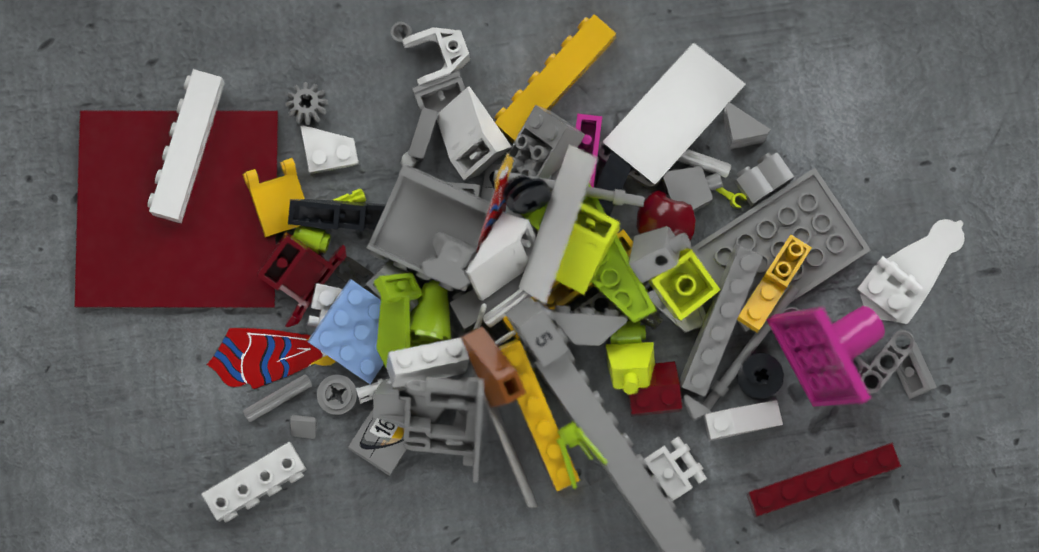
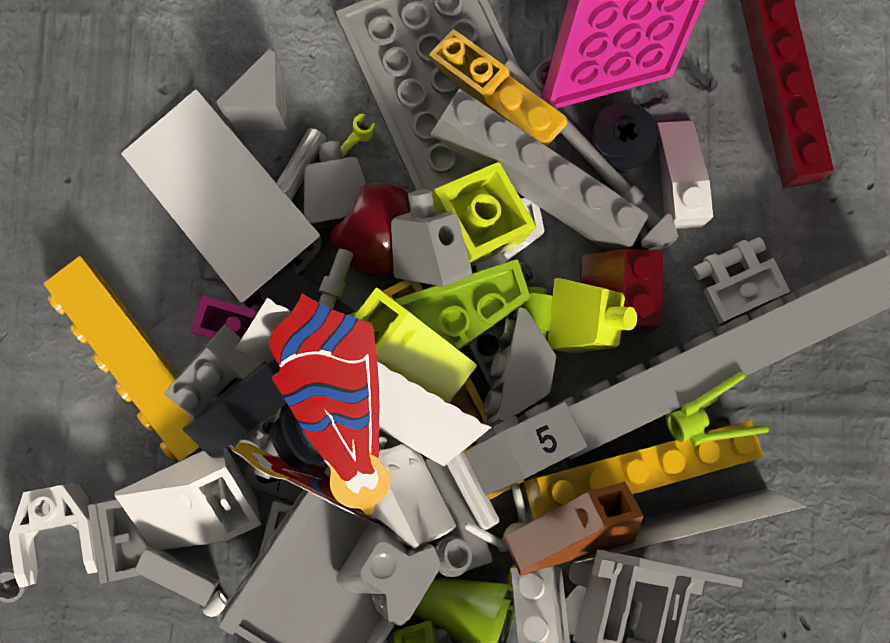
camera: 85 degrees left, 0 degrees up
(463, 301) = (456, 555): none -> light grey plate
(538, 159) = (237, 409): none -> black slope
(549, 207) = (334, 394): none -> red sticker
(764, 178) = (339, 84): light grey brick -> none

